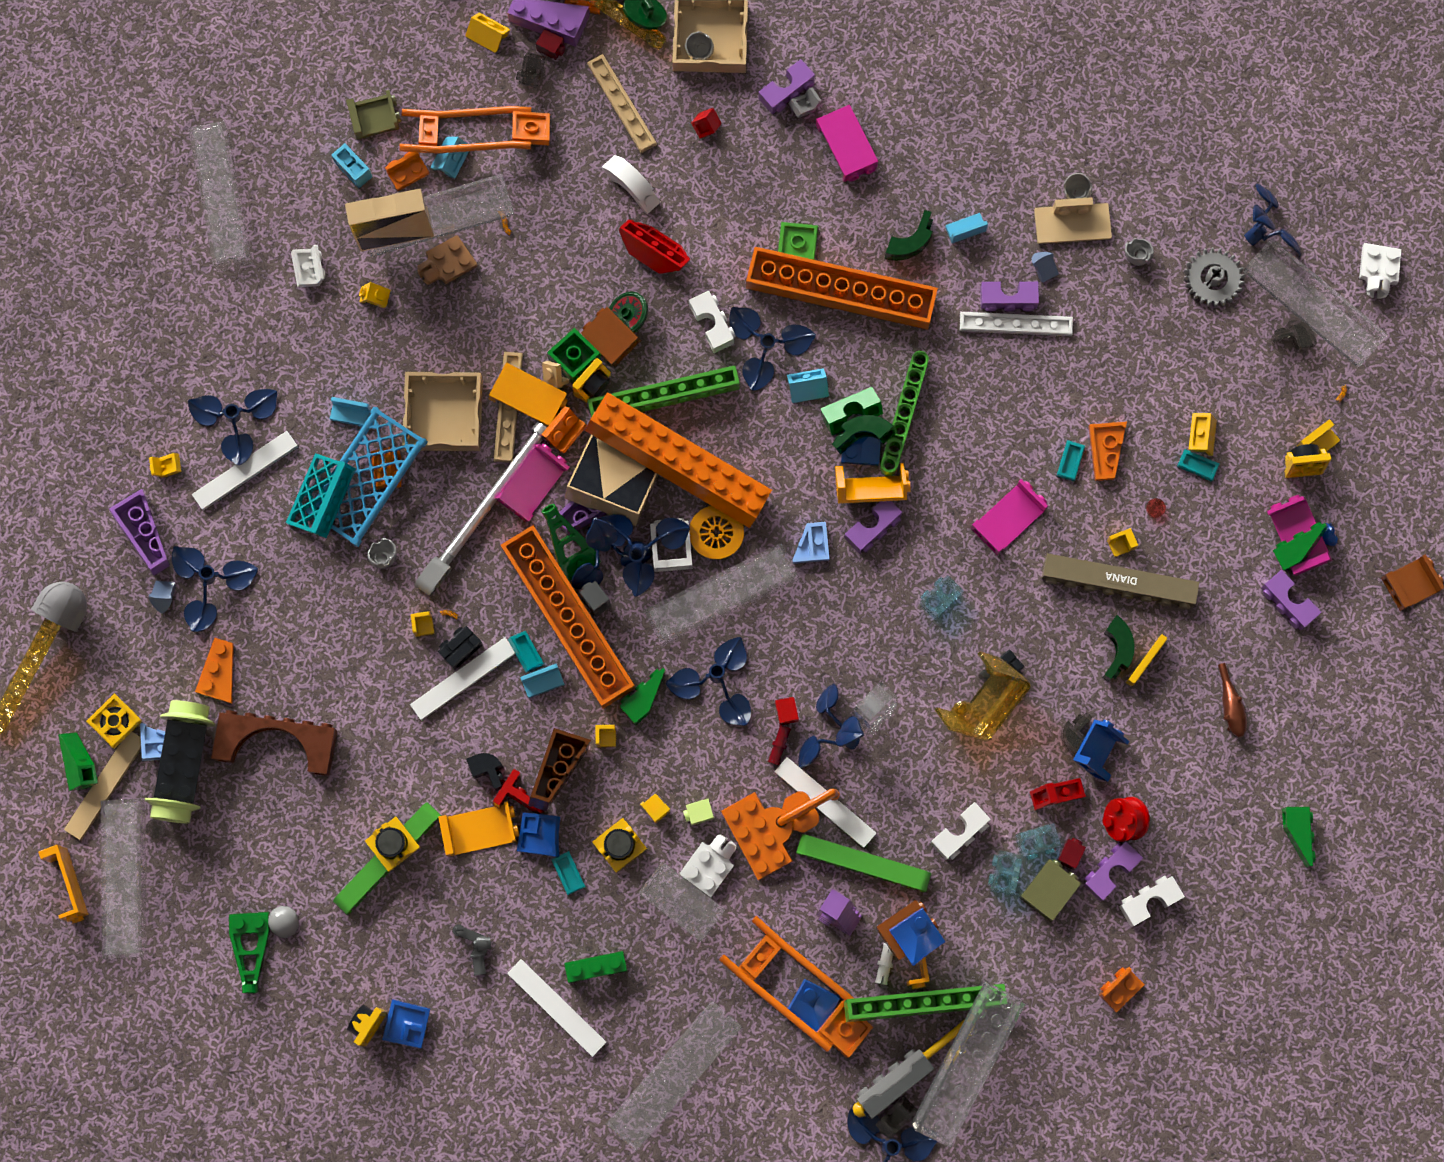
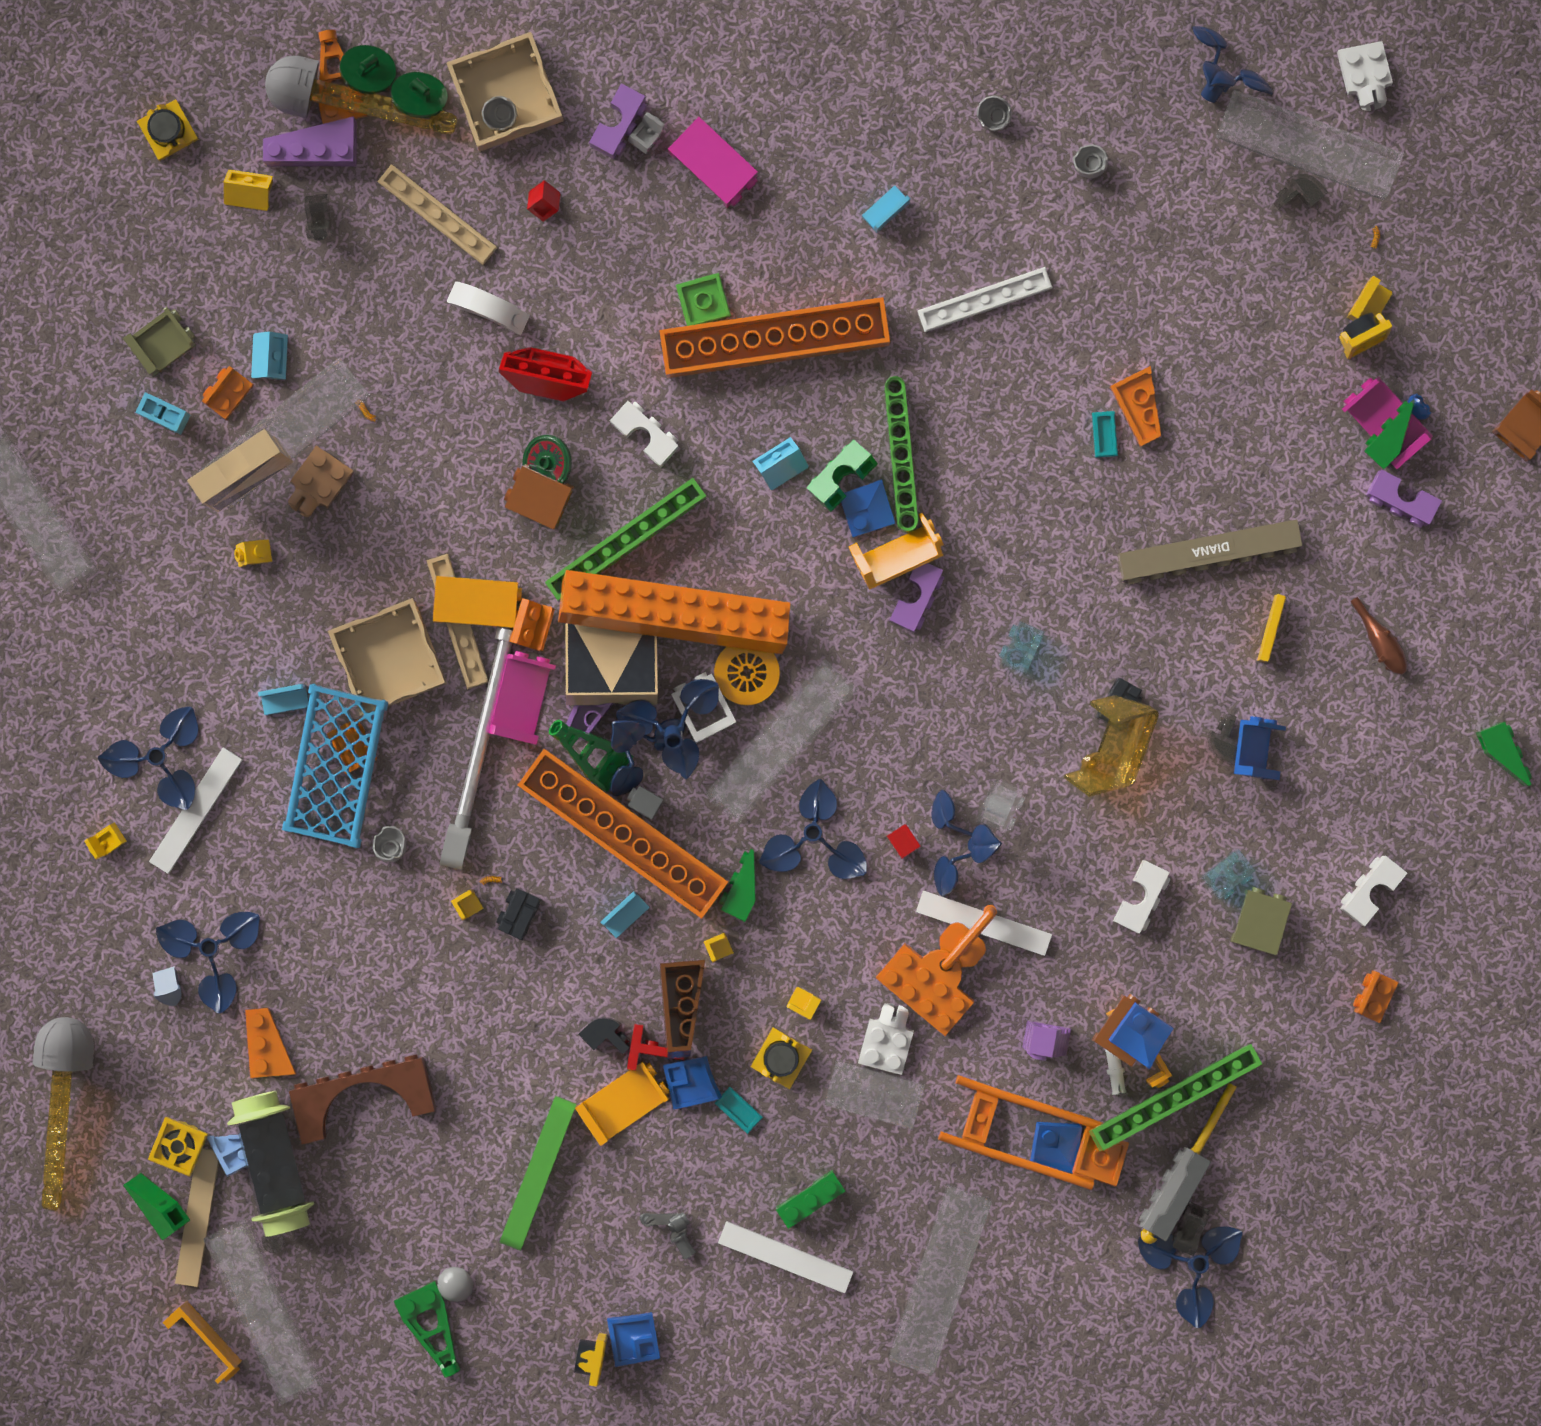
camera: 20 degrees left, 10 degrees up
(139, 527) = (108, 922): medium lavender wedge -> none
(308, 267) = (164, 550): white bracket -> none
(330, 499) = (308, 807): teal fence -> none
(391, 843) = (537, 1158): piece -> none
(463, 679) = (536, 945): white tile -> none
(525, 651) = (592, 888): teal tile -> none
(526, 129) = (344, 289): orange plate -> none
(550, 44) = (327, 177): dark red brick -> none
(553, 375) = (494, 568): tan bracket -> none
(573, 354) = (508, 536): green brick -> none
(592, 381) = (541, 558): piece -> none
(698, 812) = (852, 989): yellowish green brick -> none
(760, 372) = (718, 470): dark blue plant -> none
(779, 745) = (909, 881): dark red pin -> none
(813, 544) = (858, 643): light blue wing -> none
(863, 427) = (860, 492): dark green arch -> none
(864, 862) = (1051, 973): bright green beam -> none
(911, 246) = (832, 257): dark green arch -> none
(967, 1064) = (1245, 1144): clear piece -> none
(993, 297) = (948, 280): medium lavender arch -> none
(1009, 517) = (1062, 526): dark pink panel -> none
(1010, 874) = (1213, 921): clear light blue brick -> none
(1044, 265) = (990, 219): sand blue tile -> none
(1057, 793) = (1230, 814): red bracket -> none
(1071, 853) = (1268, 873): dark red brick -> none
(1072, 221) = (1003, 155): tan bracket -> none
(1122, 542) = (1196, 506): yellow panel -> none
(1123, 857) = (1310, 891): medium lavender arch -> none
(1124, 645) = (1242, 623): dark green arch -> none
(1126, 819) = (1314, 814): red wheel -> none
(1155, 508) = (1218, 451): clear red tile -> none
(1198, 465) = (1246, 383): teal tile -> none
(1202, 433) = (1239, 346): yellow panel -> none
(1219, 262) = (1193, 137): light grey gear -> none

